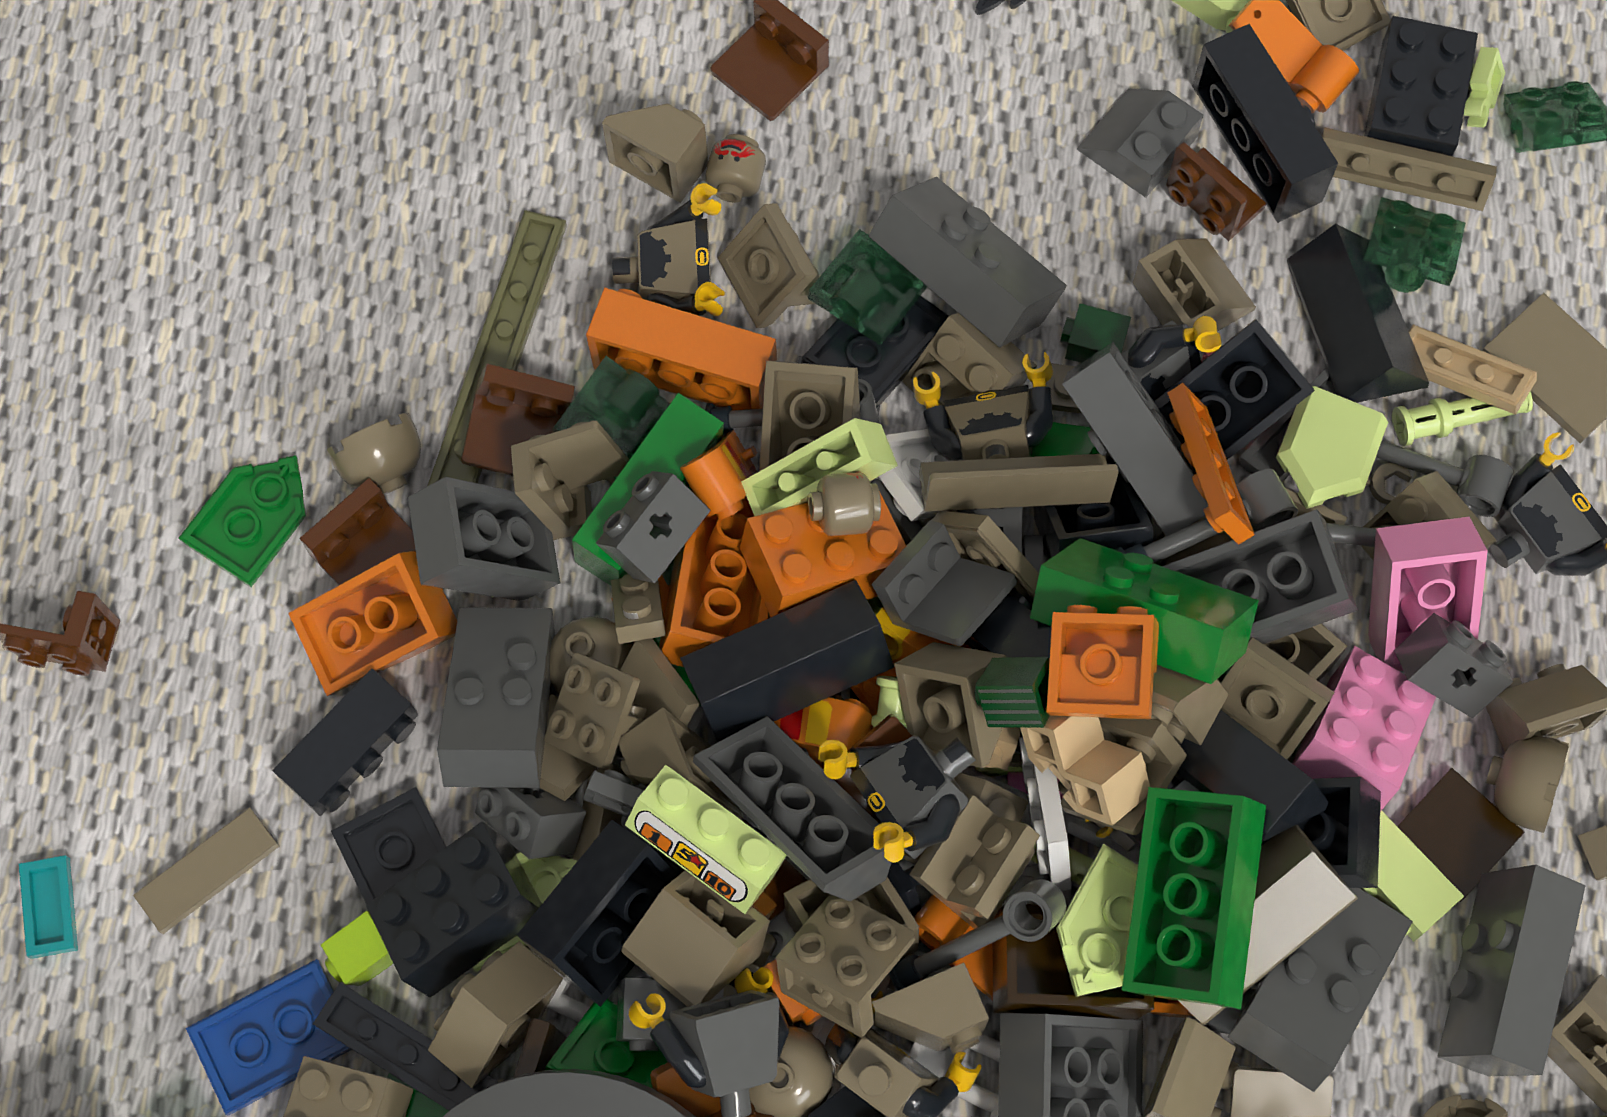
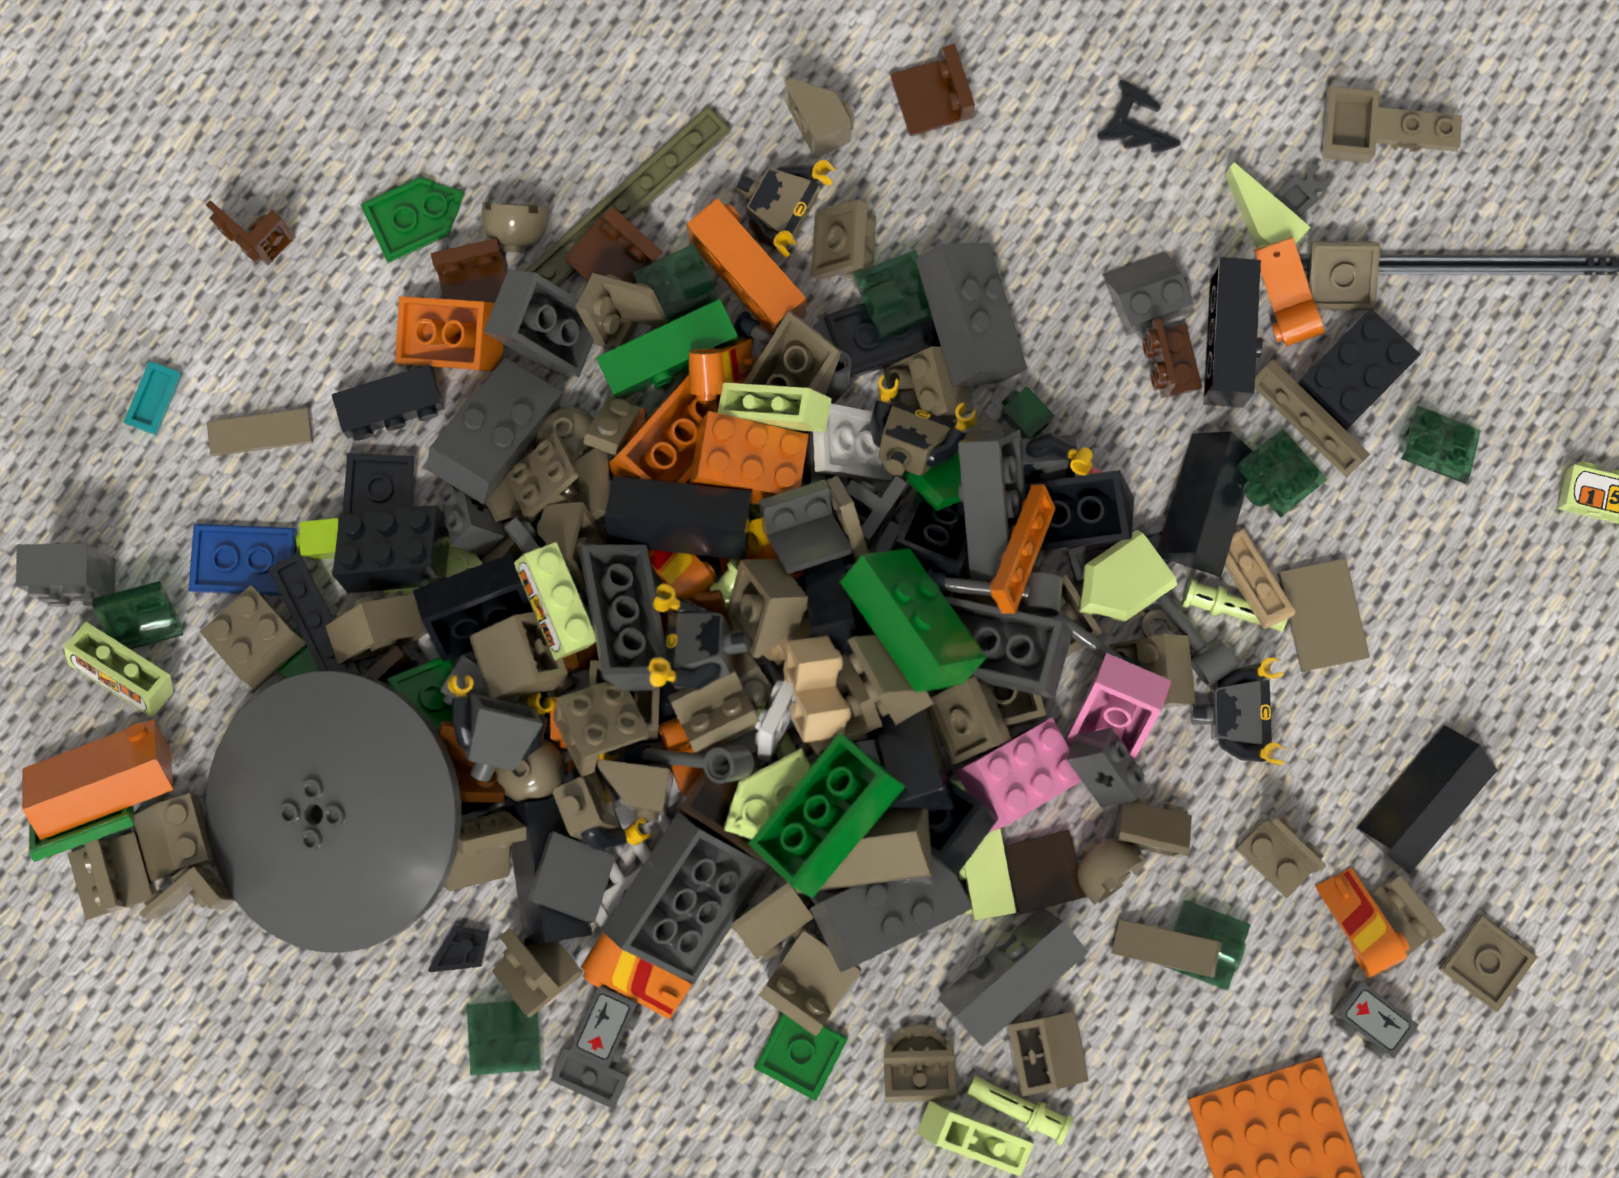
camera: 30 degrees right, 10 degrees up
(652, 525) = (665, 383): dark grey brick -> none
(735, 167) = (862, 157): dark tan head -> none
(845, 504) = (772, 439): dark tan head -> none
(1014, 692) = (795, 626): dark green brick -> none
(1016, 482) = (896, 485): dark tan panel -> none
(1102, 663) = (855, 640): orange plate -> none
(1190, 282) = (1112, 418): dark tan slope -> none
(1485, 86) = (1407, 390): yellowish green plate -> none

